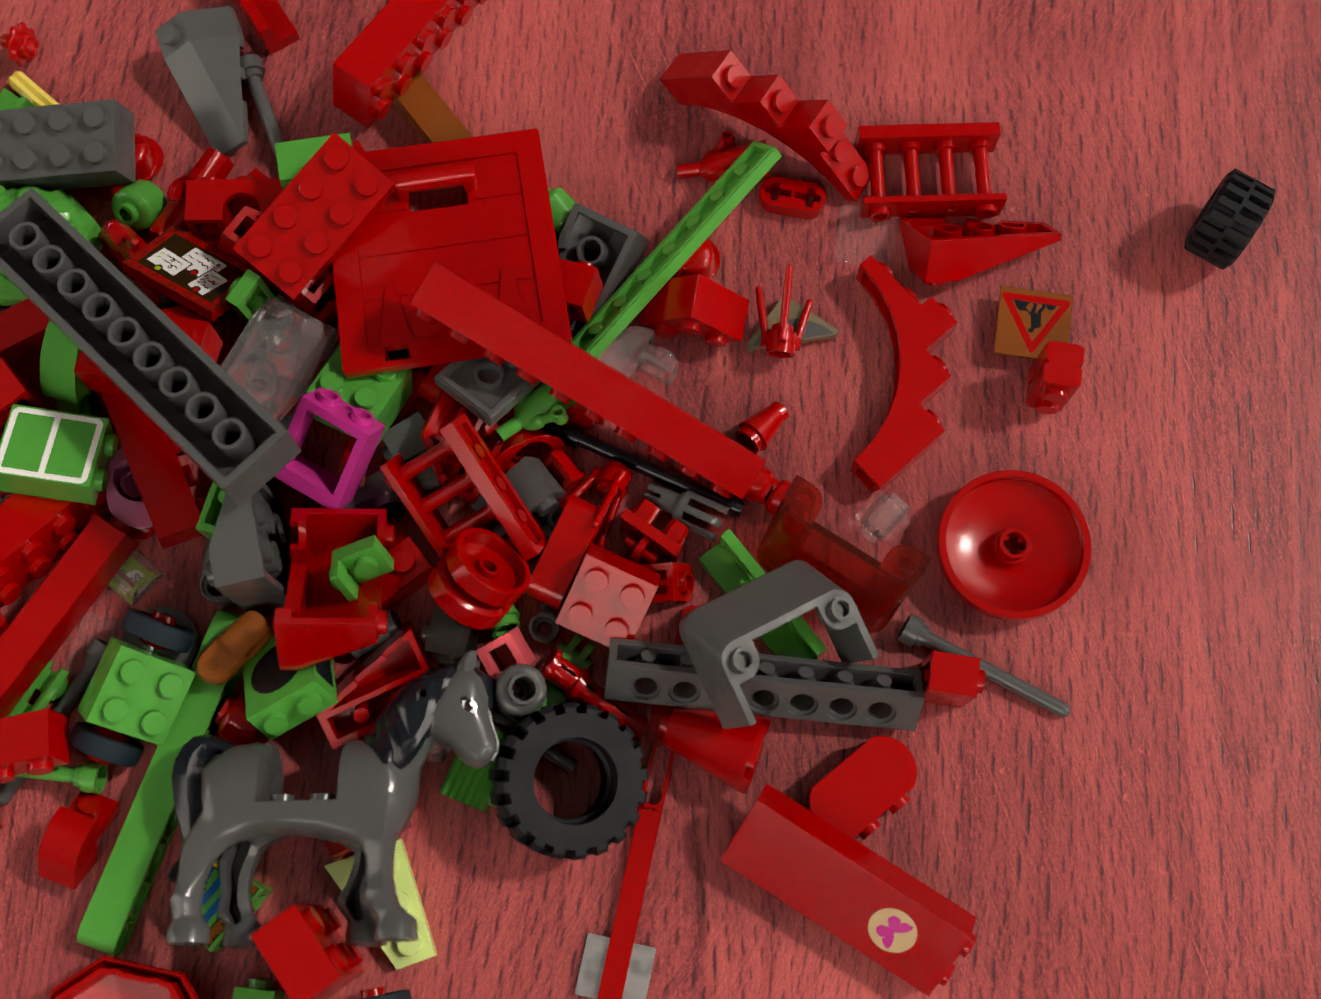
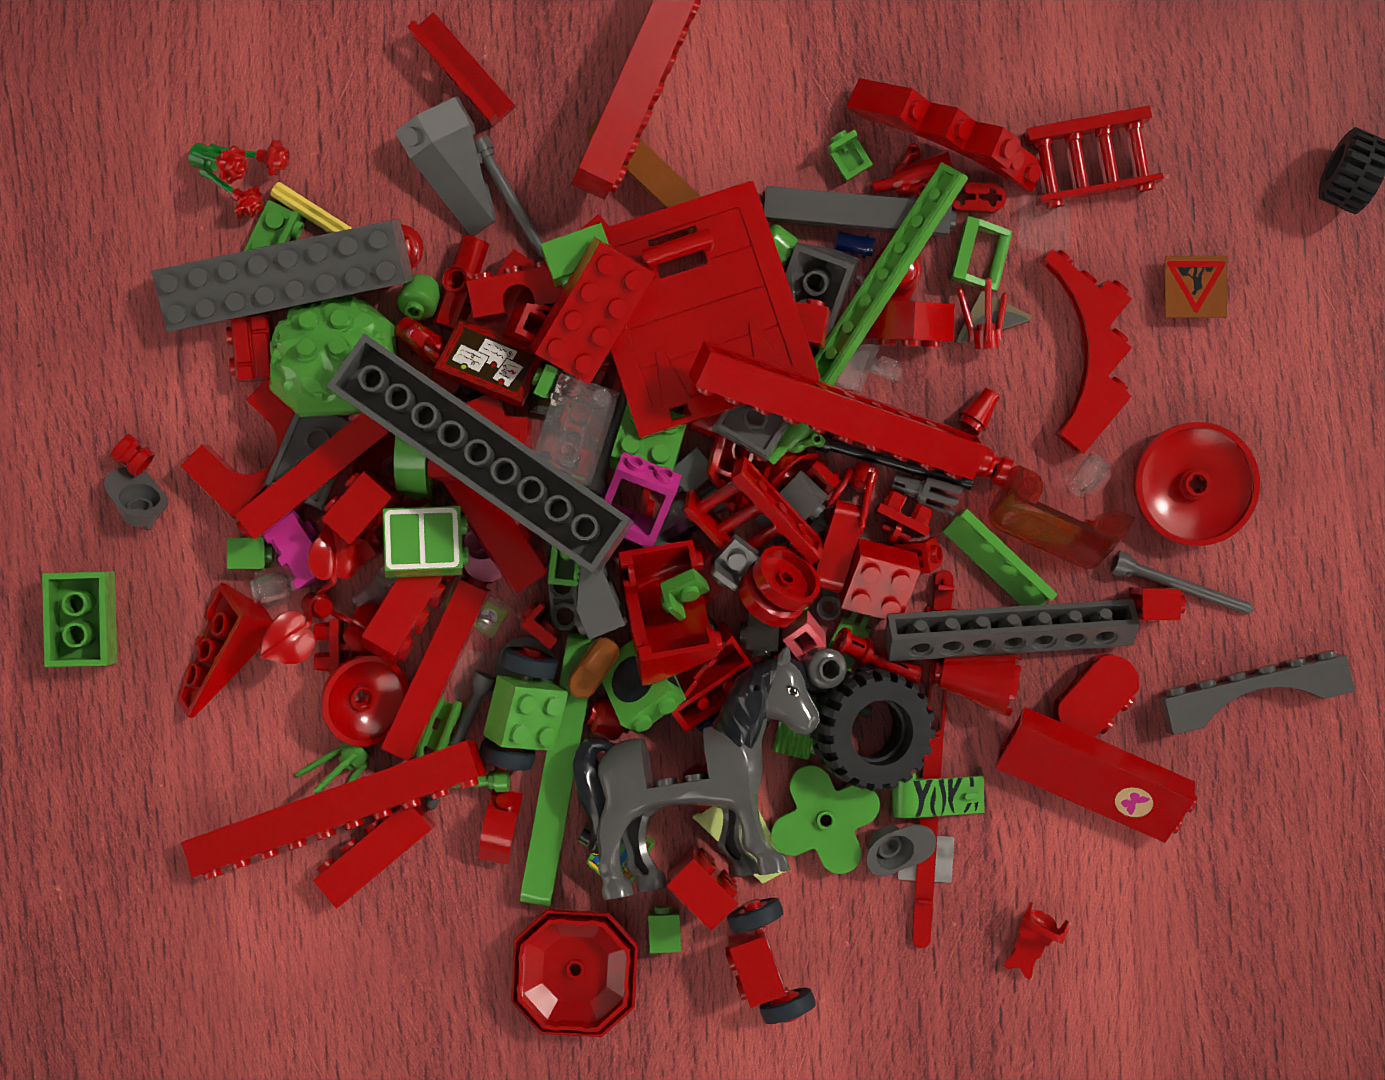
camera: 10 degrees left, 15 degrees up
(179, 581) = (543, 630): none -> red bracket
(428, 543) = (732, 562): none -> dark grey bracket
(499, 926) = (814, 797): none -> bright green plant
(579, 948) = (899, 848): none -> dark grey piece
(641, 887) = (938, 797): none -> bright green door
(643, 187) = (844, 210): none -> dark grey brick
(647, 225) = (855, 244): none -> clear blue pin
(654, 130) = (848, 155): none -> bright green bracket
(723, 631) = (999, 581): dark grey windscreen -> none
(787, 223) = (965, 248): none -> bright green tile
(954, 252) = (1125, 226): red wedge -> none
(1055, 376) = (1218, 336): red brick -> none
(1146, 810) = (1194, 707): none -> dark grey arch

